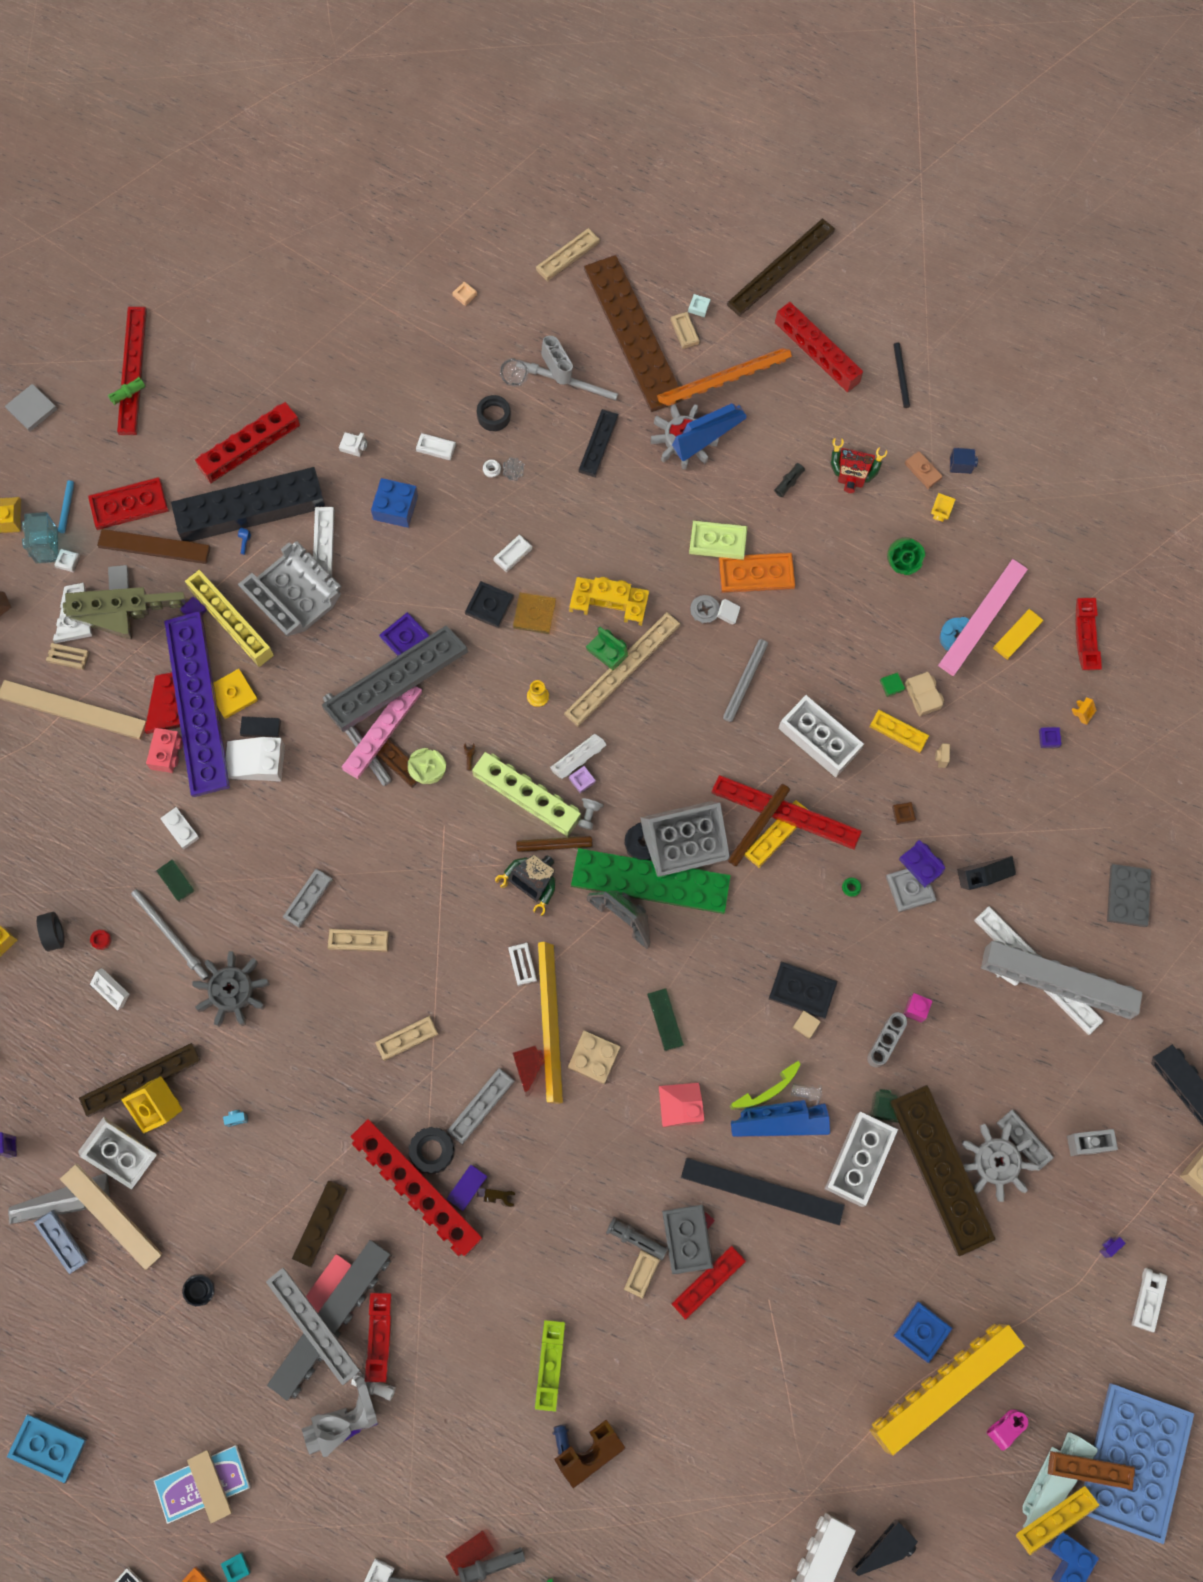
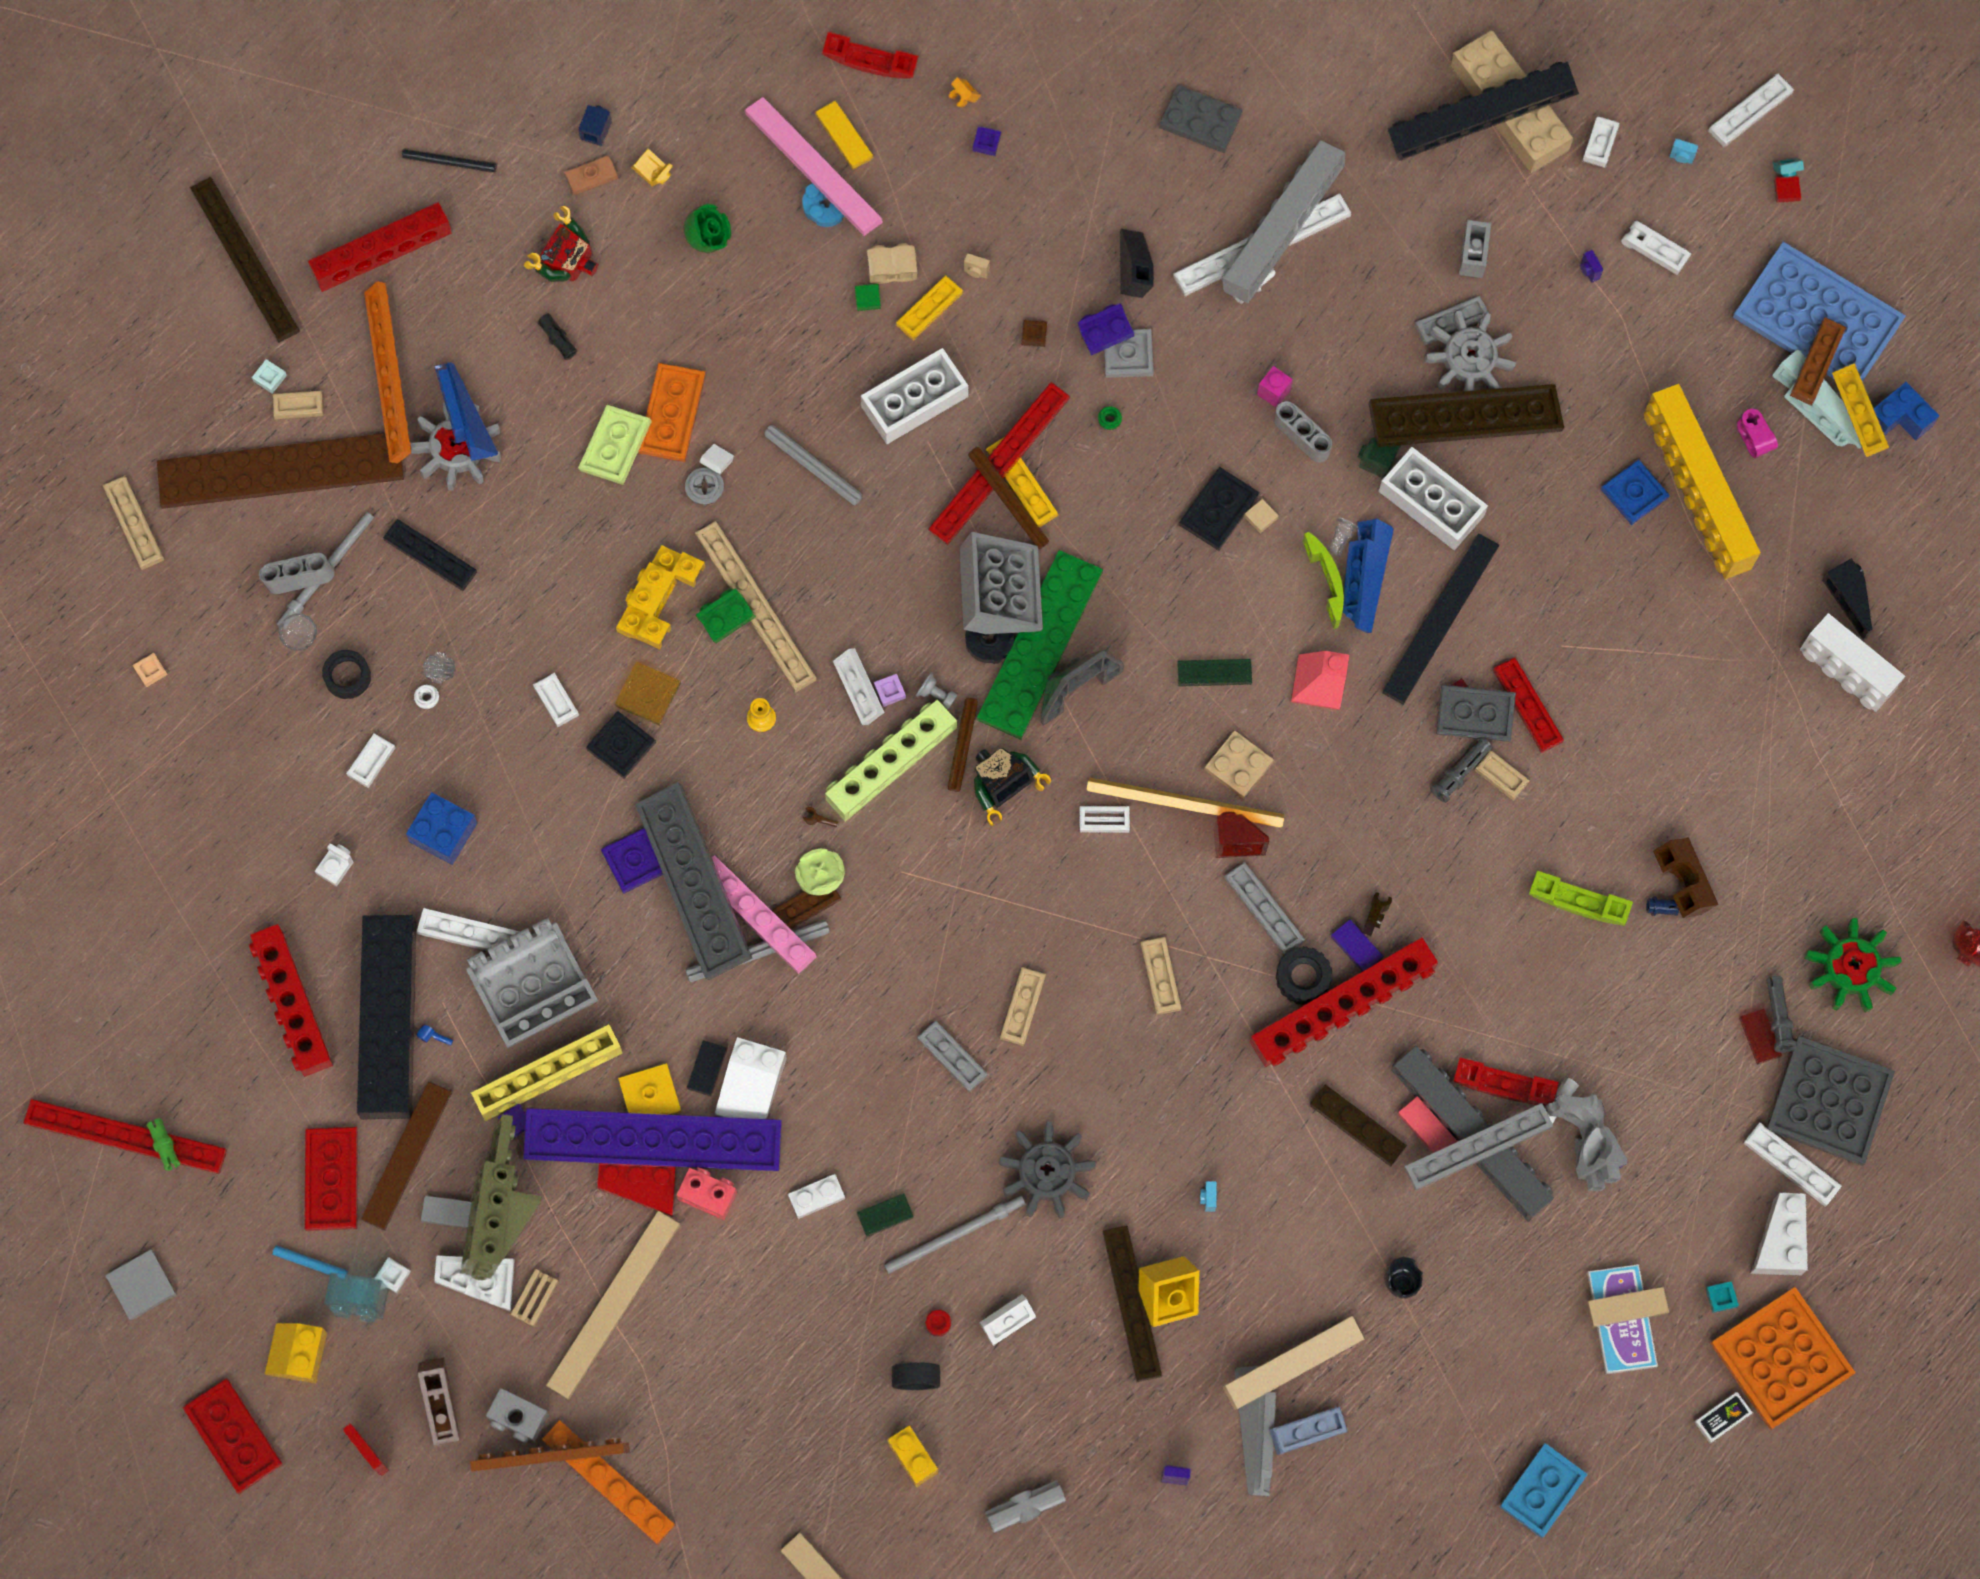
camera: 75 degrees left, 0 degrees up
(117, 1153) = (1215, 1347): white slope -> none

